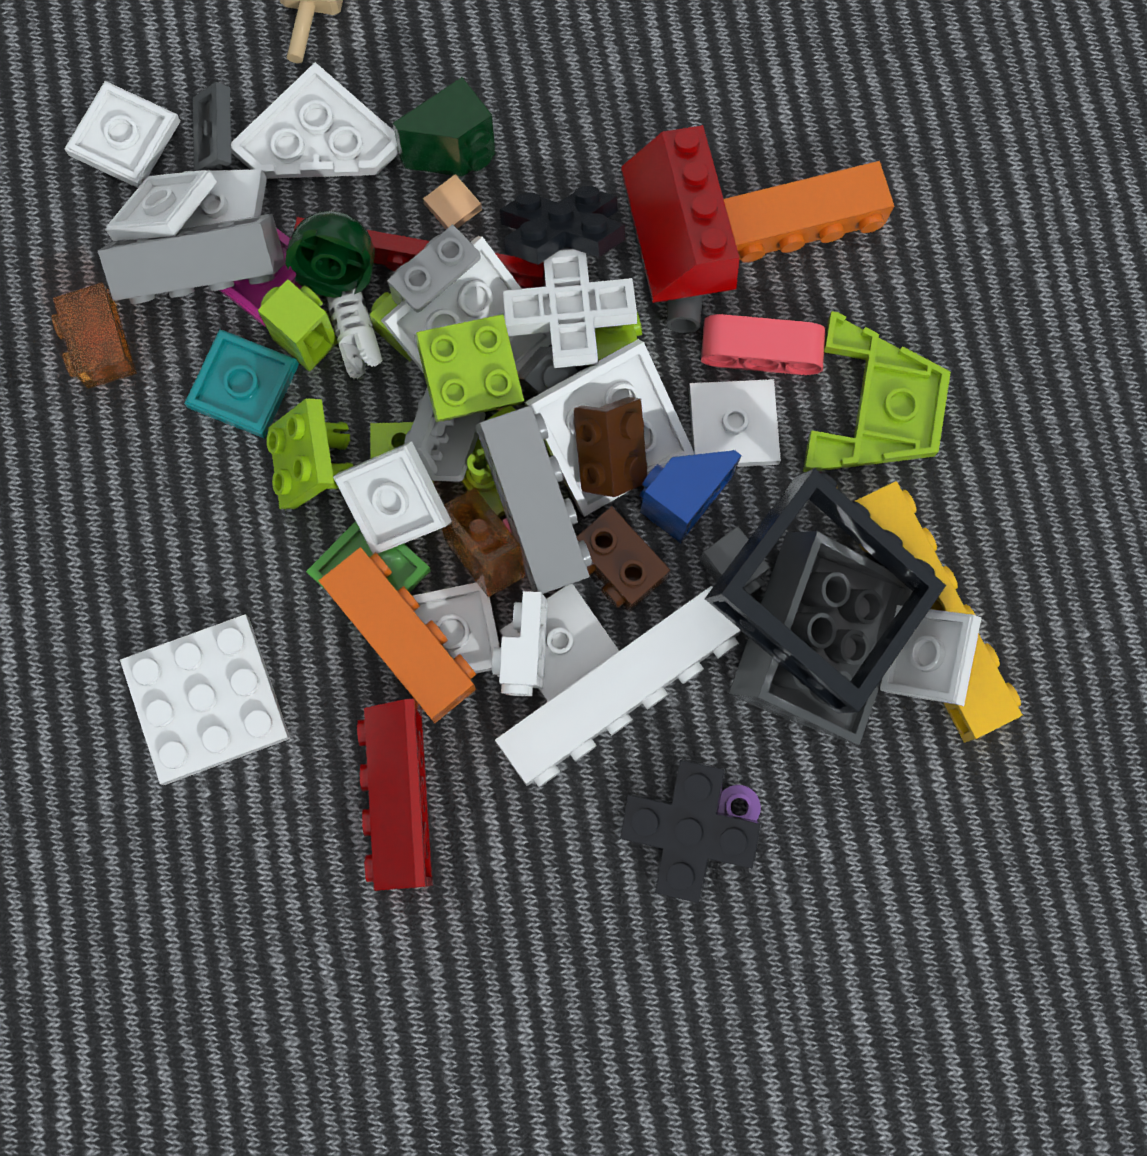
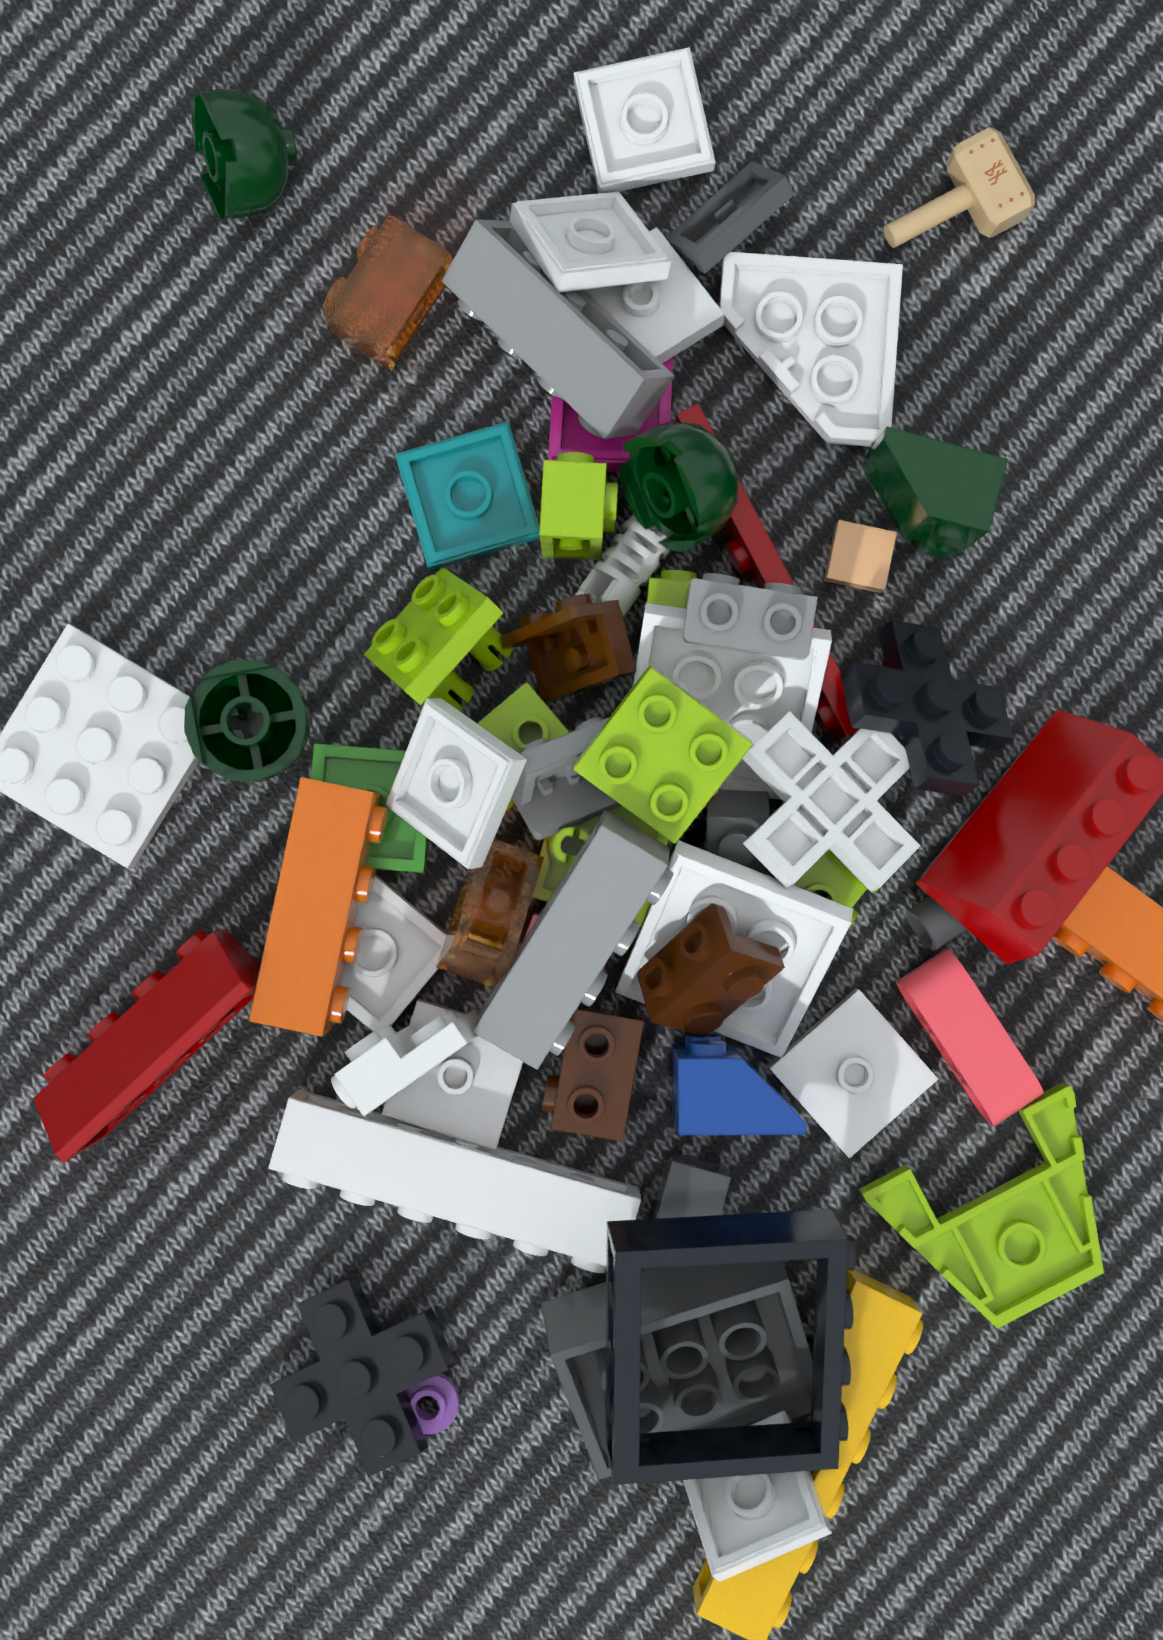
camera: 55 degrees right, 10 degrees up
(262, 591) = (247, 721): none -> dark green cylinder
(372, 382) = (575, 646): none -> reddish brown bracket

